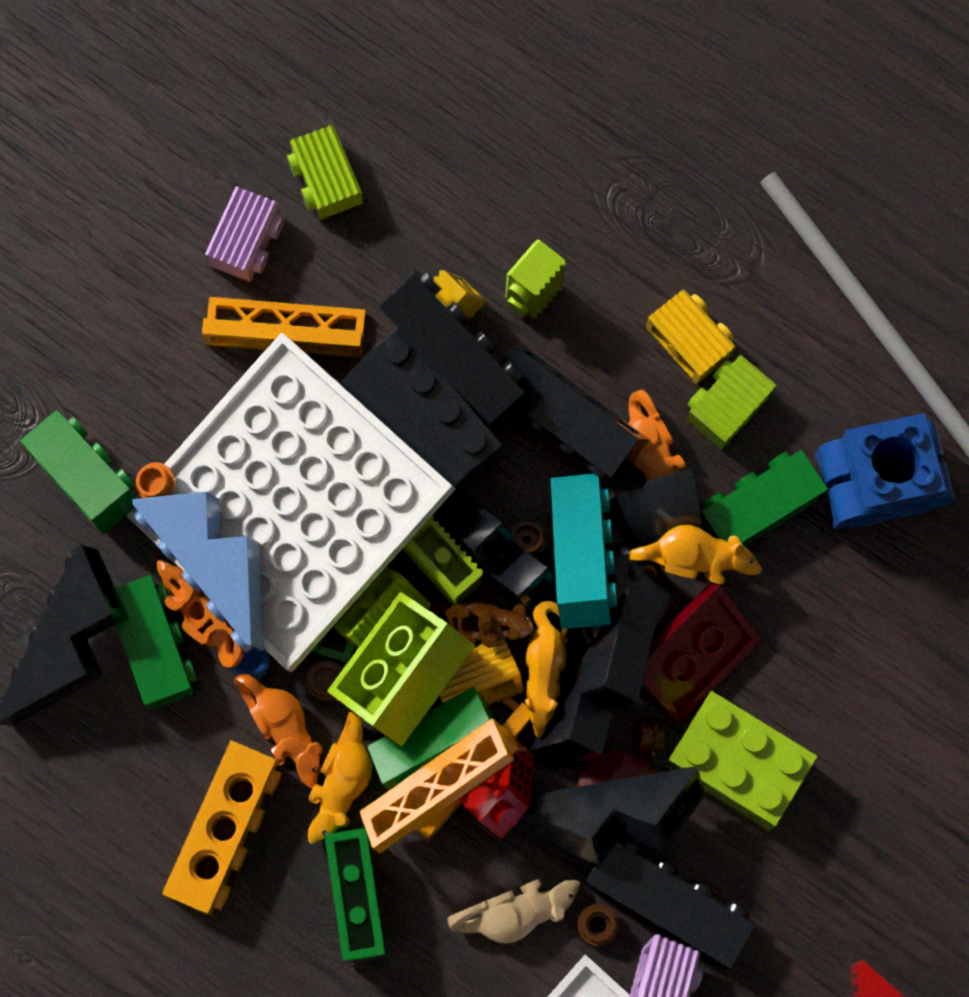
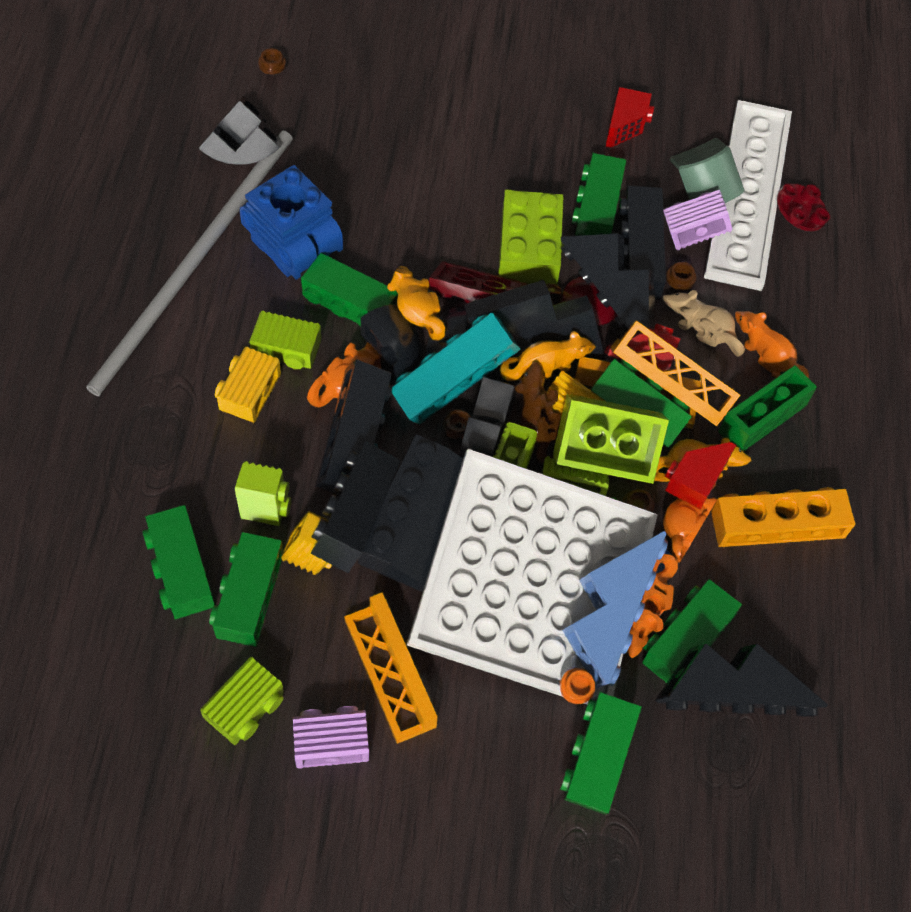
camera: 120 degrees left, 15 degrees down
(309, 745) = (698, 472): none -> red slope
(434, 968) = (775, 350): none -> orange animal
(442, 227) = (247, 589): none -> green brick
(507, 176) = (177, 562): none -> green brick
(765, 889) = (599, 195): none -> green brick

